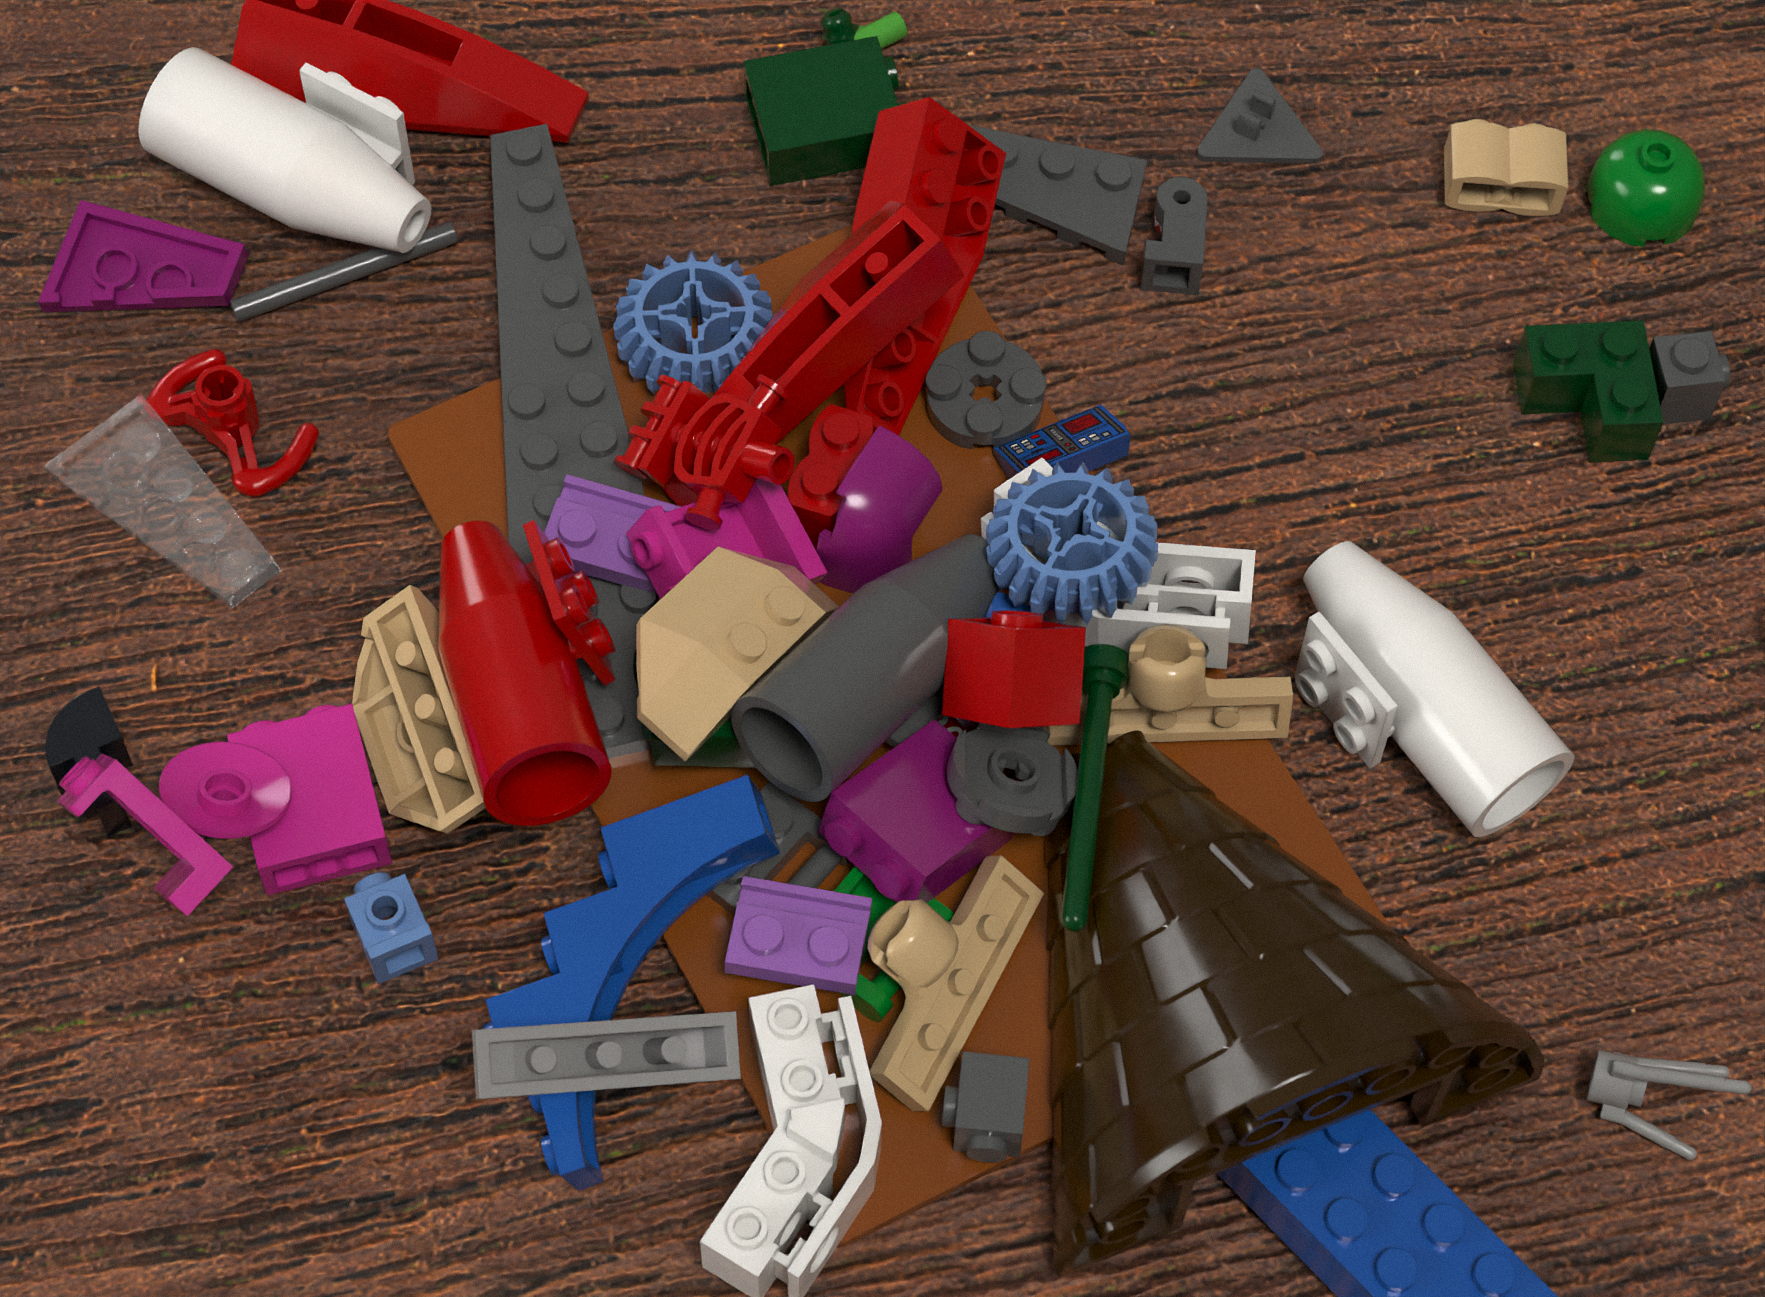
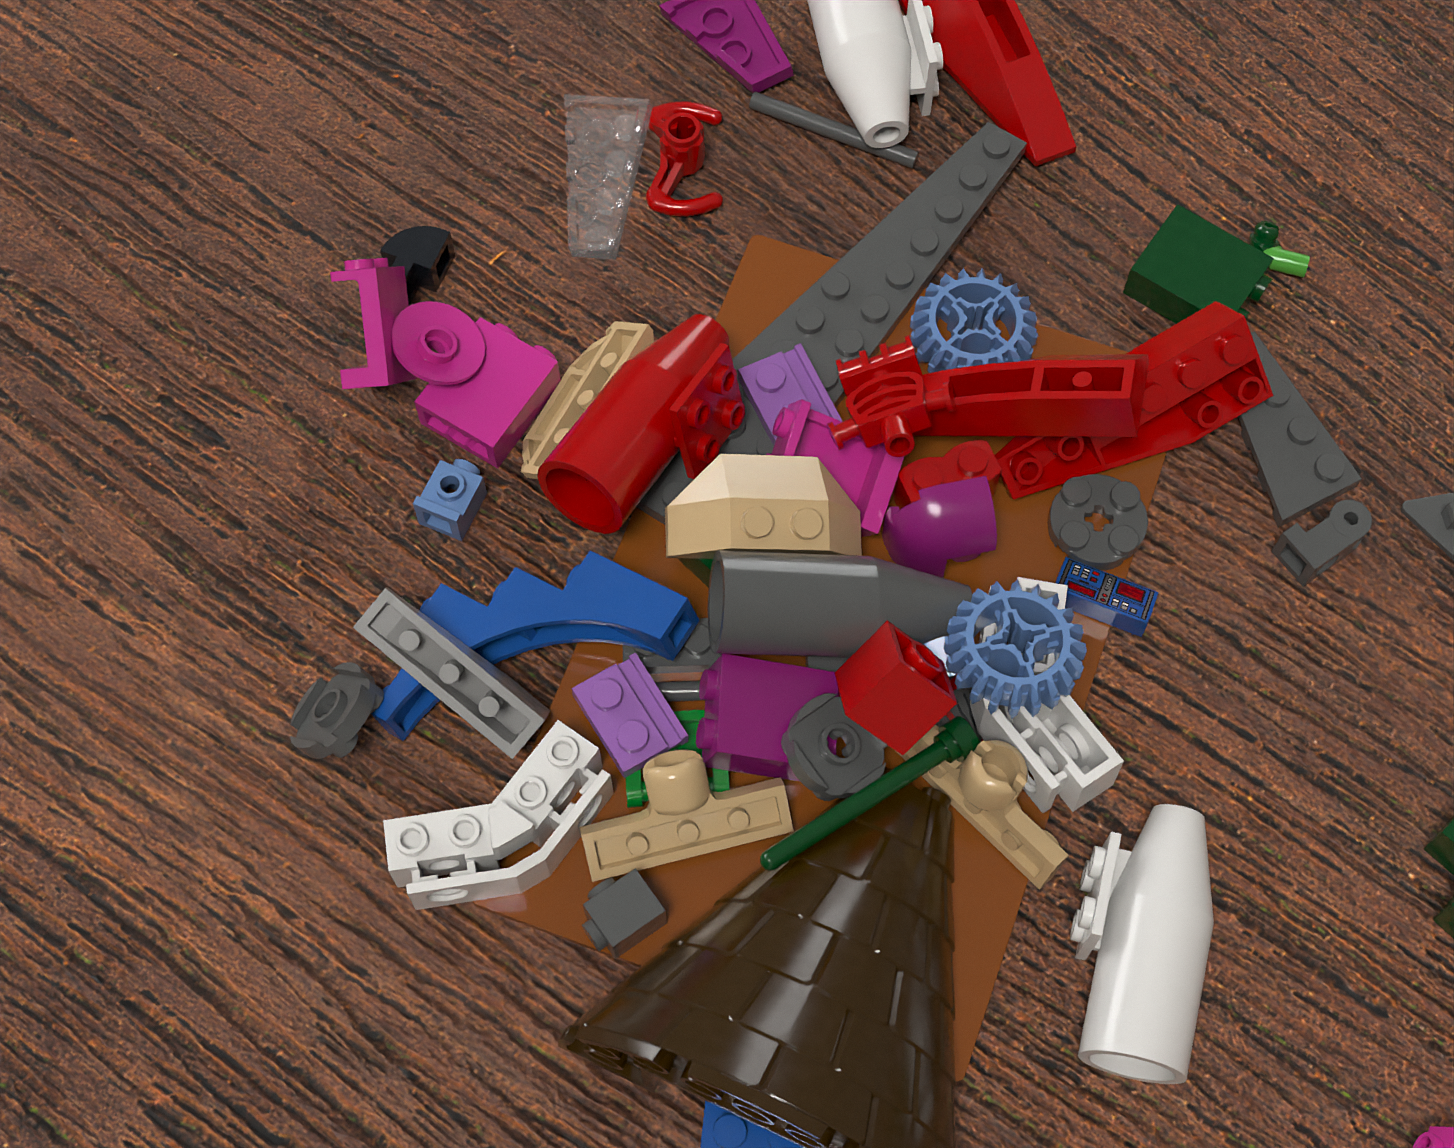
camera: 50 degrees right, 5 degrees up
(550, 1211) = (335, 712): none -> dark grey plate

